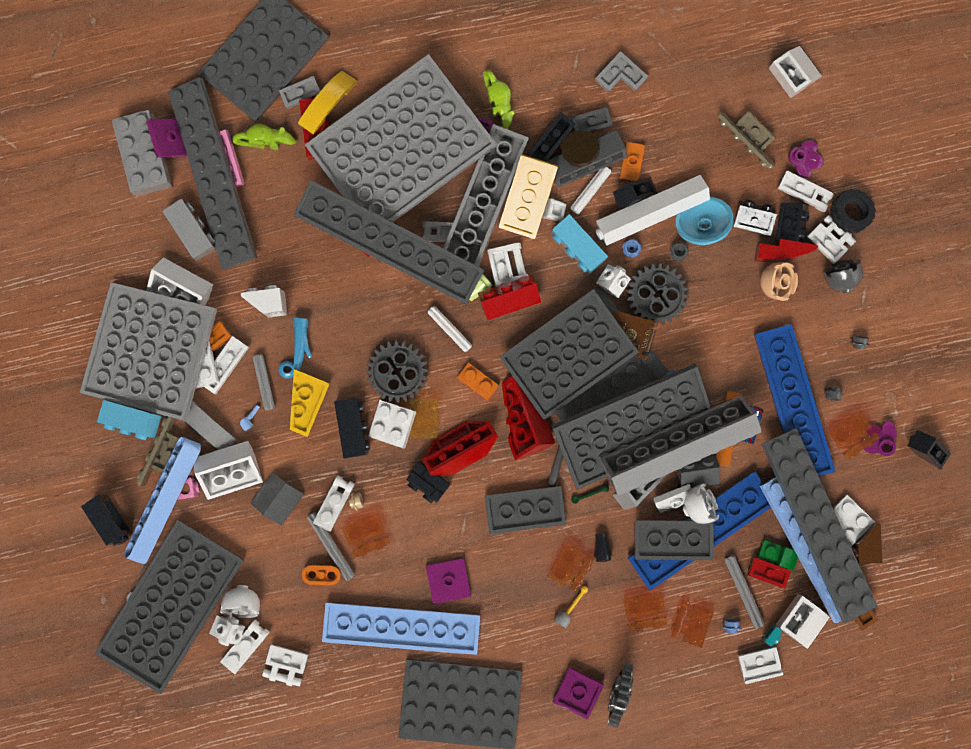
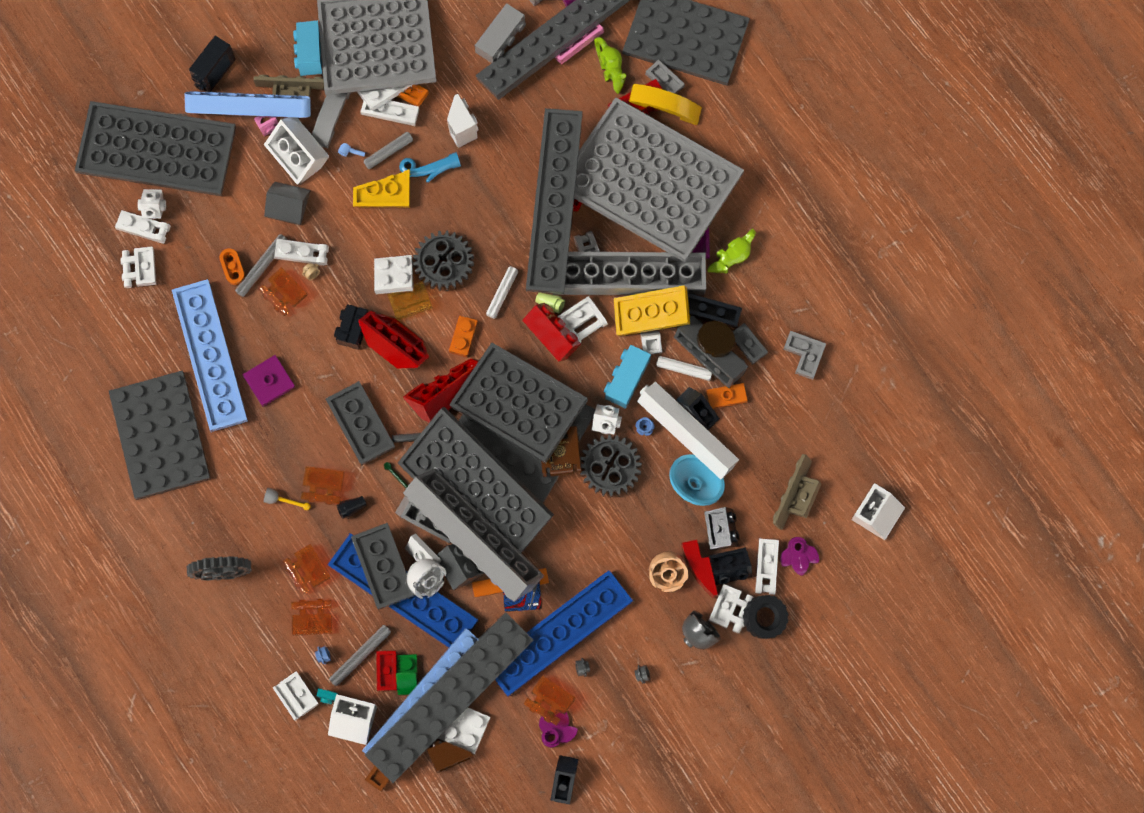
camera: 70 degrees right, 10 degrees down
(176, 282) = (447, 43): white slope -> none
(240, 602) = (181, 205): white cylinder -> none
(351, 427) = (376, 240): black brick -> none
(578, 693) = (208, 536): magenta plate -> none
(679, 256) = (659, 466): dark grey plate -> none

